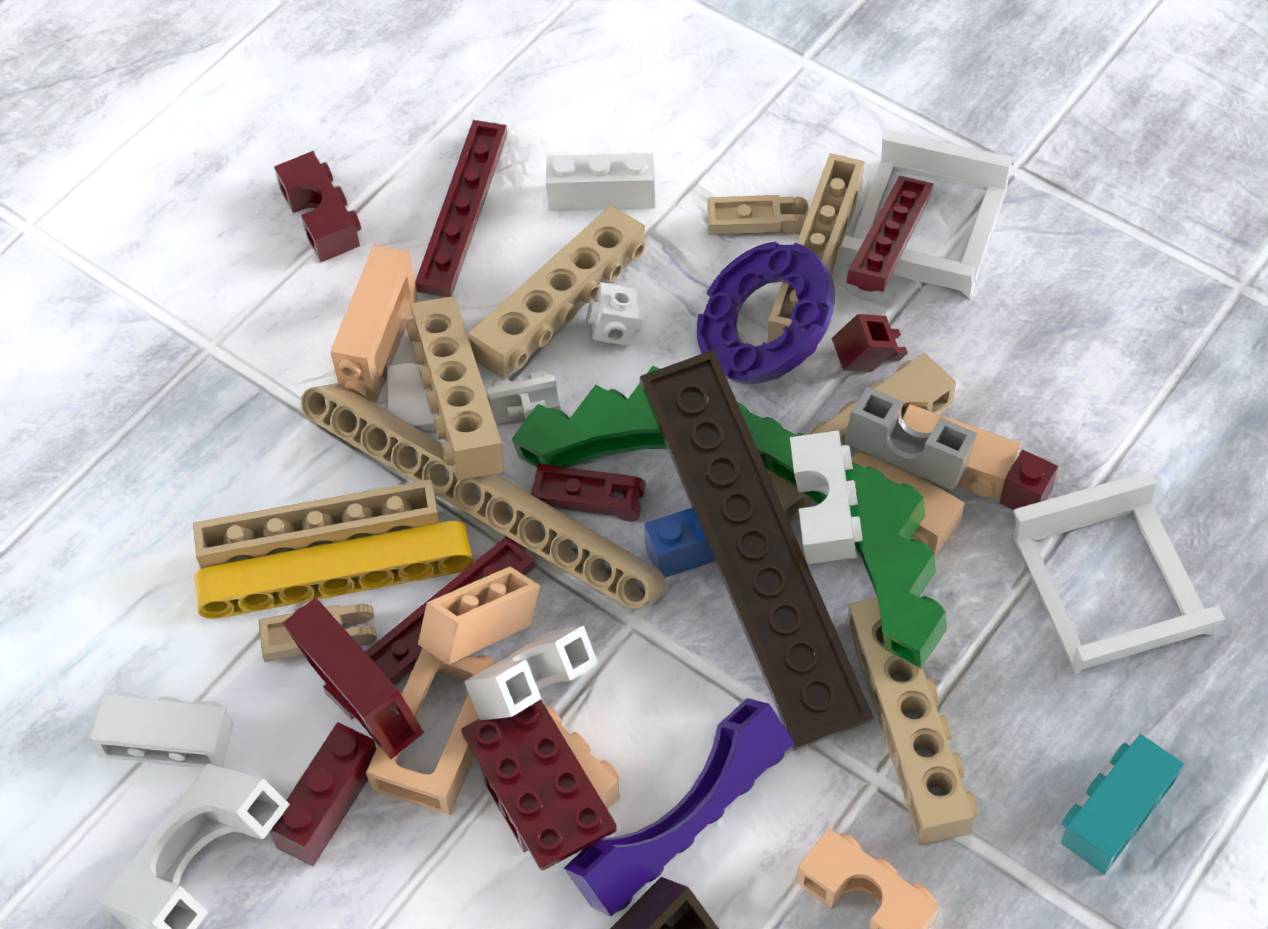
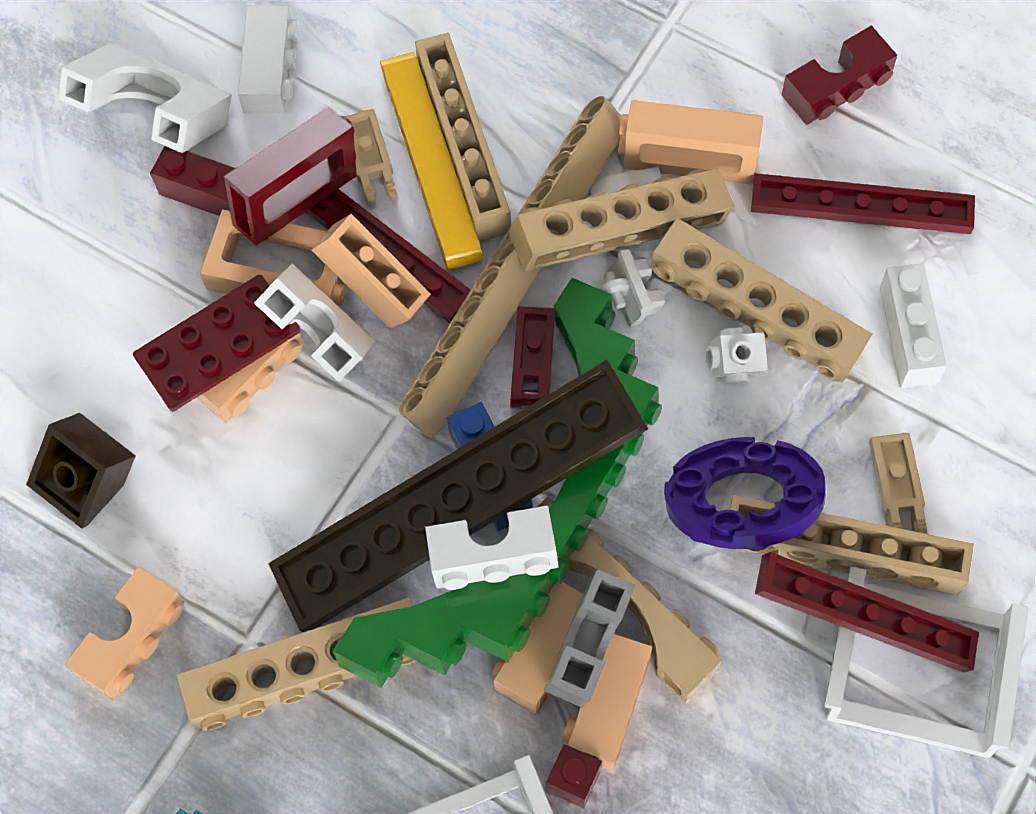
camera: 85 degrees right, 10 degrees up
(741, 751) = (260, 516): dark purple arch -> none
(867, 343) = (733, 605): dark red brick -> none

